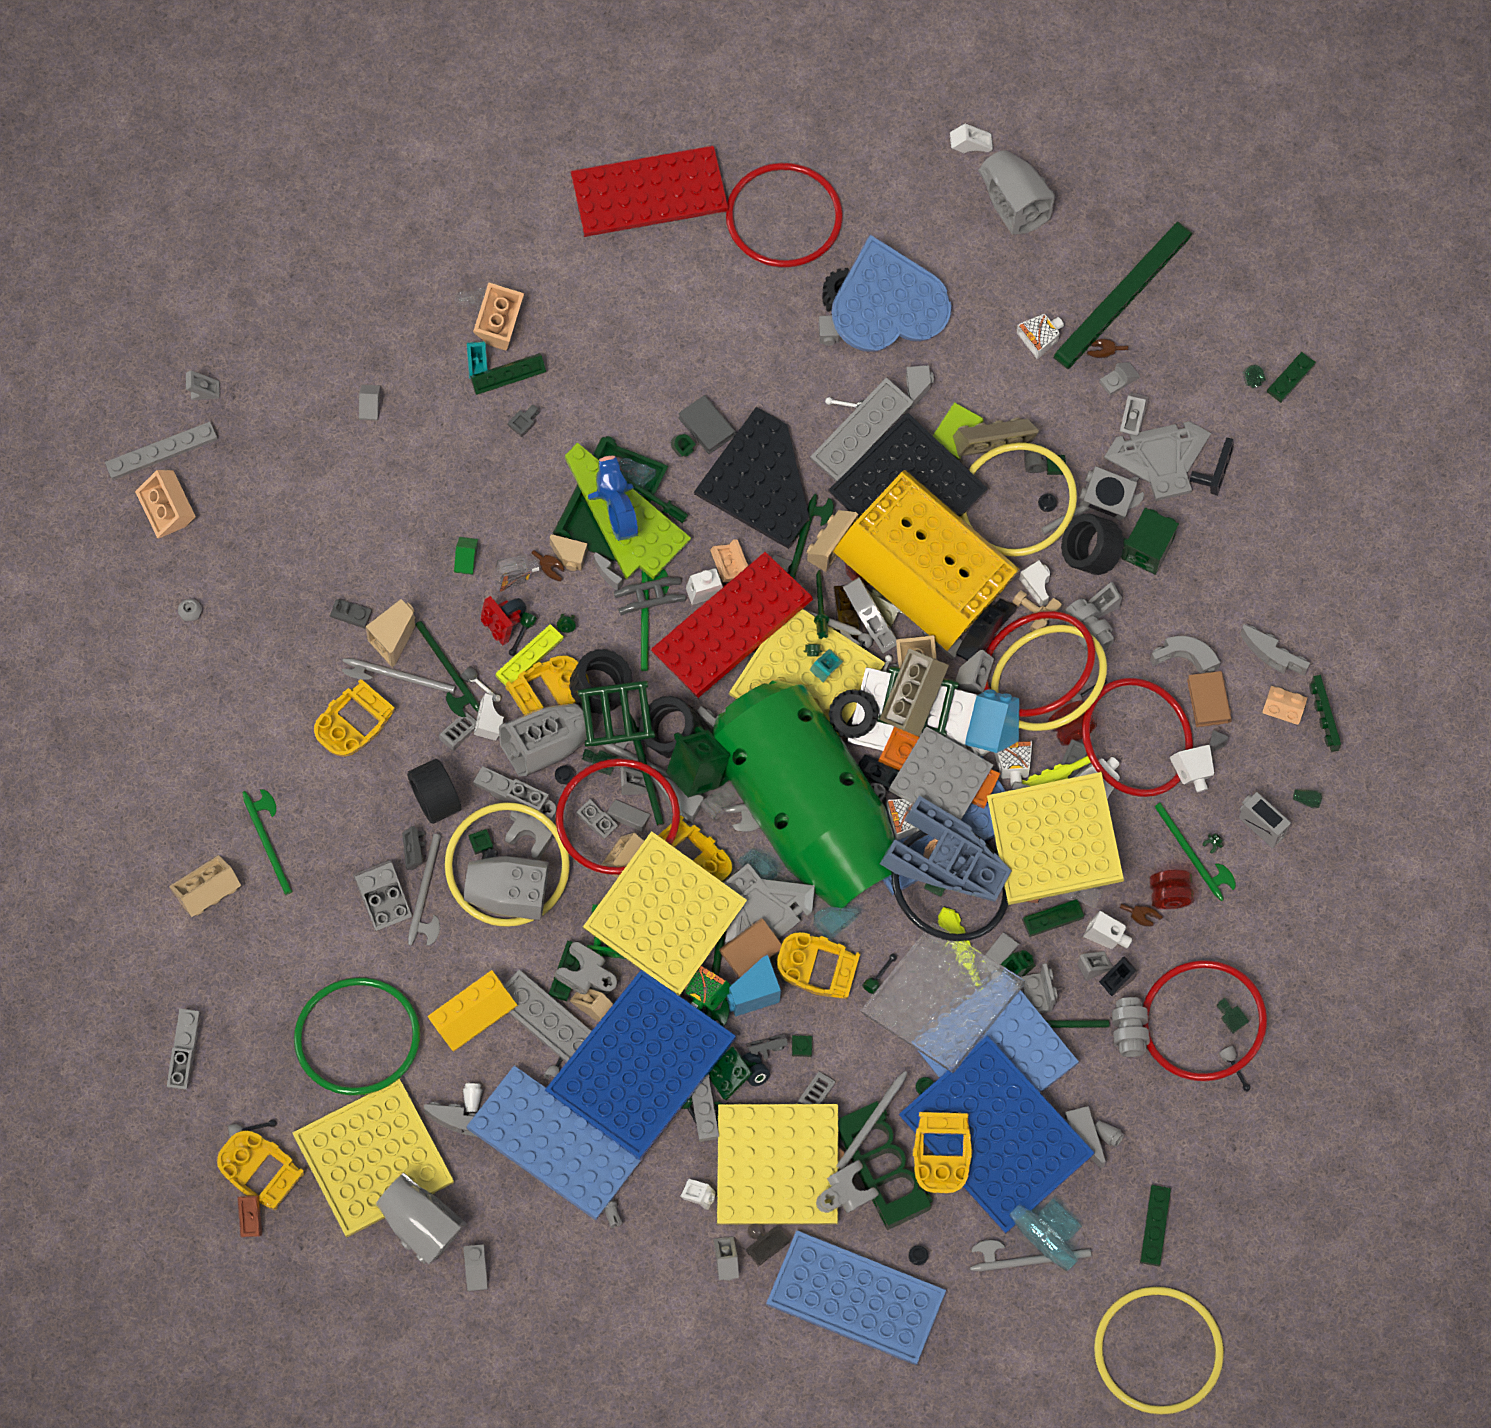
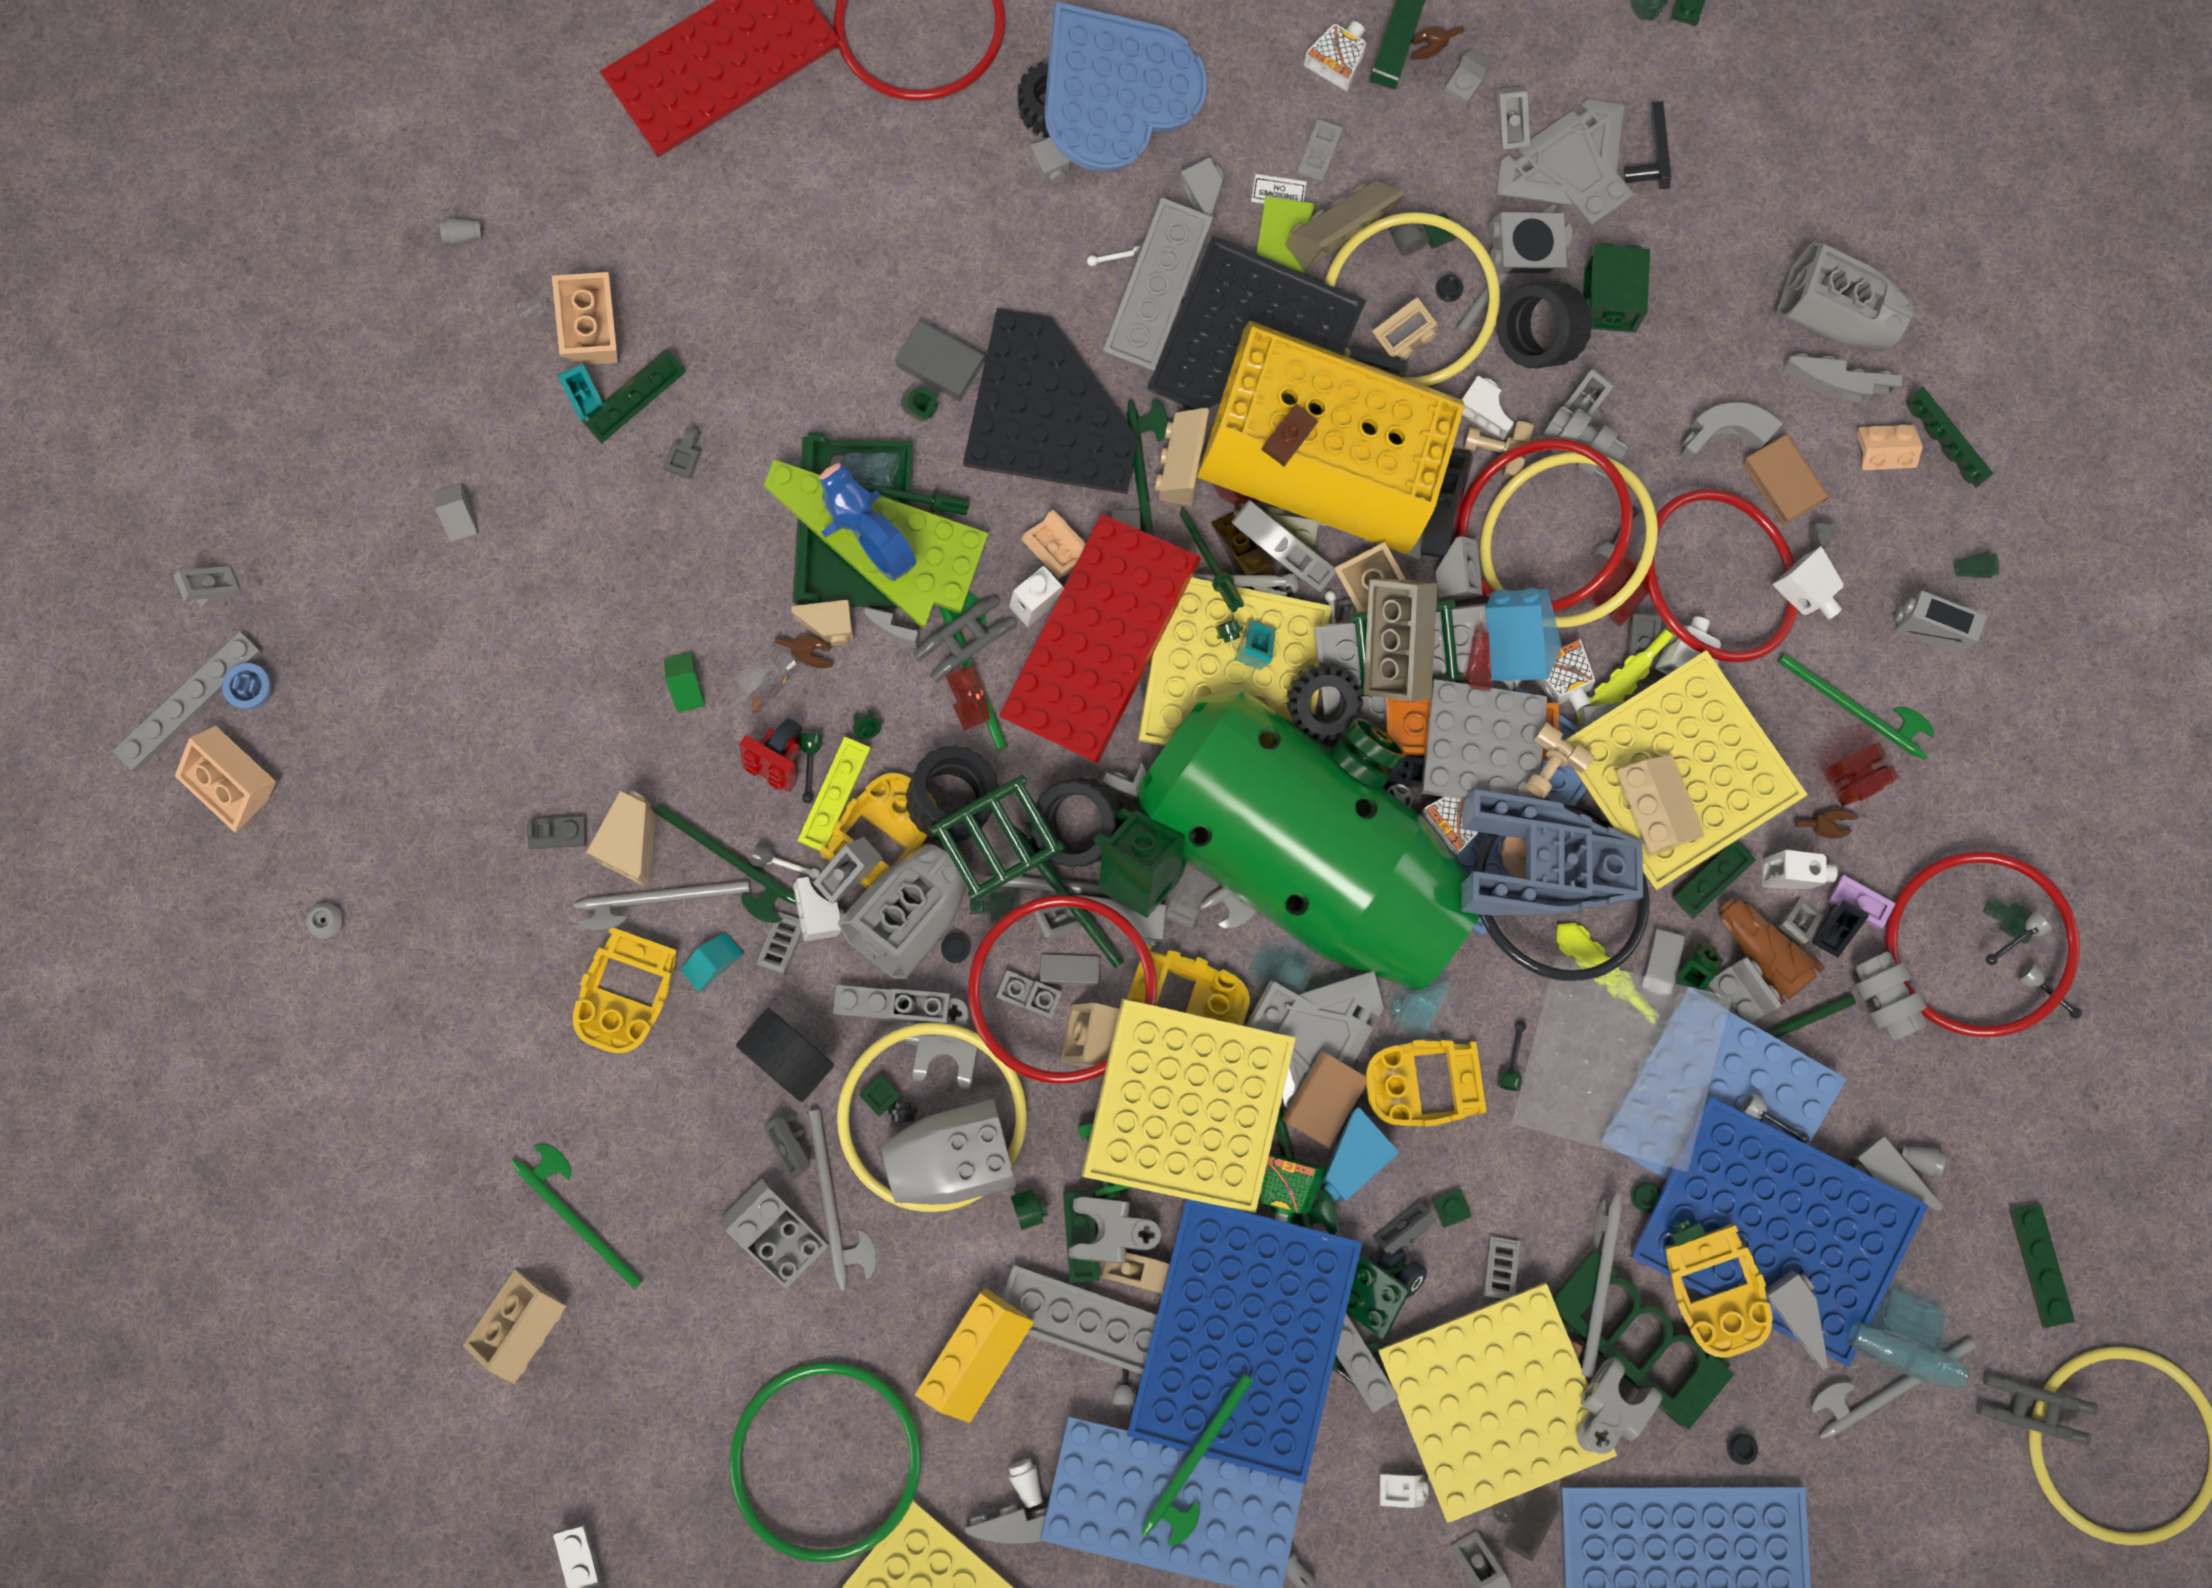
camera: 20 degrees left, 10 degrees up
(201, 455) = (246, 686): none -> medium blue piece
(411, 723) = (710, 961): none -> teal slope
(442, 234) = (458, 230): none -> light grey cone
(518, 698) = (847, 869): none -> light grey slope
(542, 941) = (1028, 1209): none -> dark green plate
(558, 1150) = (1185, 1522): none -> green piece
(637, 633) = (970, 697): none -> clear red slope
(864, 752) = (1367, 753): none -> dark green wheel
(896, 543) = (1289, 435): none -> copper plate
(936, 1106) = (1685, 1231): none -> dark green plate
(958, 730) = (1478, 666): none -> clear red slope
(966, 401) = (1277, 188): none -> white sticker
(983, 530) = (1383, 362): none -> black plate
(983, 799) = (1559, 754): none -> tan bar
(986, 1180) = (1799, 1310): none -> light grey slope
(1003, 388) = (1320, 150): none -> light grey slope
(1004, 515) = (1406, 330): none -> tan window
(1014, 1056) = (1757, 1108): none -> hinge
(1030, 850) = (1659, 804): none -> tan slope
(1068, 977) = (1780, 959): none -> dark orange cone
(1107, 1293) = (2054, 1400): none -> dark grey piece
(1146, 974) = (1865, 899): none -> lavender plate
(1215, 840) = (1883, 677): dark green plate -> none
(1238, 1018) = (2035, 925): none -> hinge
(1292, 603) = (1844, 300): none -> light grey animal

